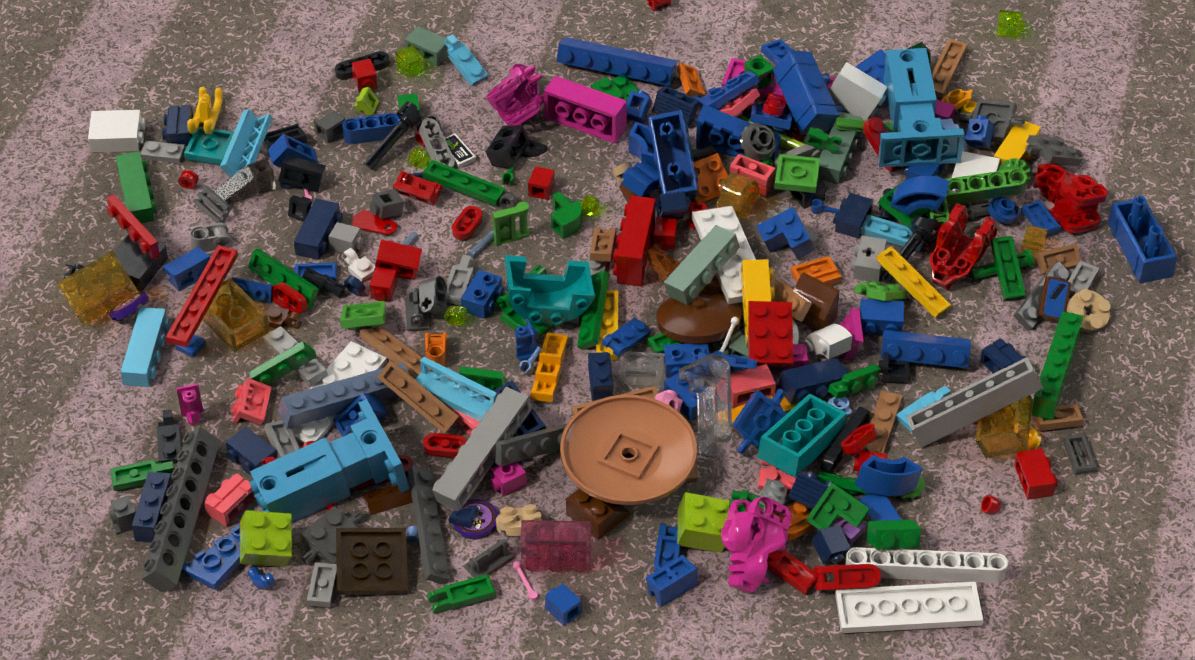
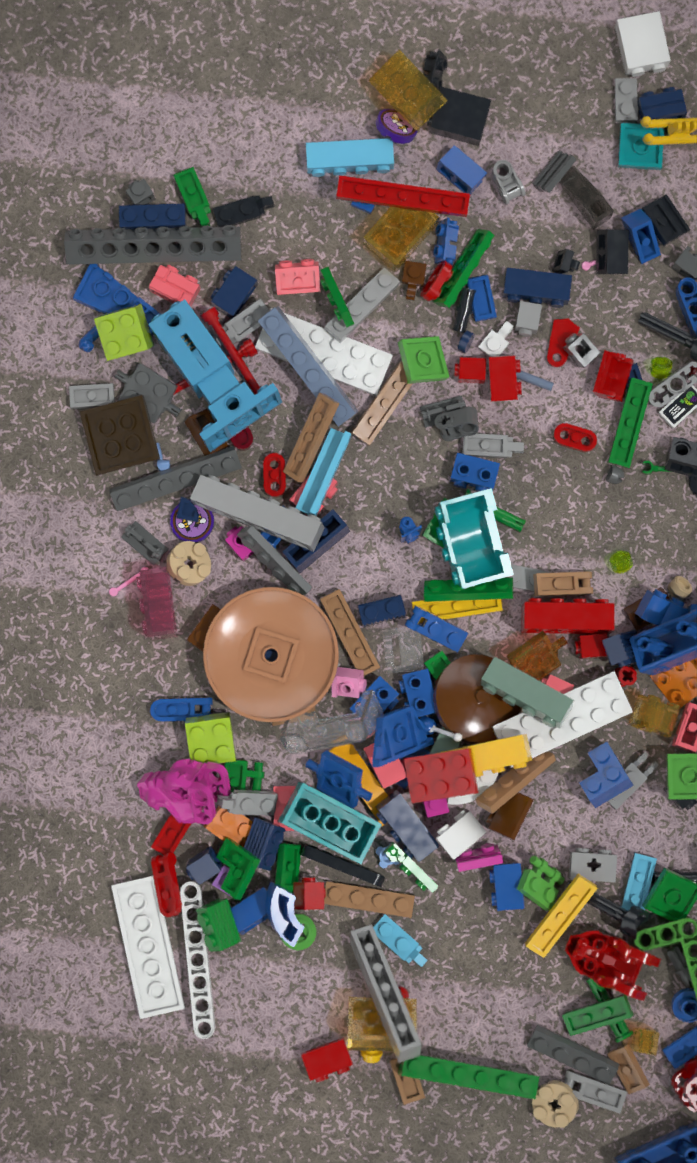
camera: 80 degrees right, 35 degrees up
(134, 186) = (563, 86): green brick -> none
(135, 229) = (496, 94): red plate -> none
(188, 179) = (586, 137): red bush -> none
(190, 402) = (276, 220): dark pink hinge -> none
(245, 142) = (645, 180): medium azure fence -> none
(349, 415) = (294, 386): blue slope -> none
(436, 347) = (396, 440): orange piece -> none
(455, 315) = (440, 452): clear neon green tile -> none
(462, 594) = (102, 528): green hinge -> none
(481, 245) = (562, 465): sand blue bar -> none
(488, 378) = (360, 495): green bracket -> none
(504, 224) = (565, 477): bright green plate -> none
(529, 363) = (391, 538): medium blue hand -> none
(541, 183) = (645, 504): red brick -> none
(549, 367) = (391, 558): light orange slope -> none
(563, 604) = (101, 621): blue brick -> none
(567, 216) = (597, 543): green brick -> none
(672, 580) = (142, 718): blue hinge -> none
(818, 208) = (664, 810): blue hand -> none
(821, 269) = (563, 812): orange plate -> none
(852, 215) = (655, 843): dark blue brick -> none
(859, 439) = (333, 879): red plate -> none
(893, 370) = (441, 906): black bracket -> none
(919, 193) = (672, 913): blue brick -> none
(926, 348) = (471, 937): blue brick -> none
(991, 503) = (283, 1020): red hinge -> none
(999, 355) = (470, 1021): dark blue brick -> none
(1054, 298) = (561, 1067): slope -> none
(1083, 468) = (344, 1101): dark grey tile -> none

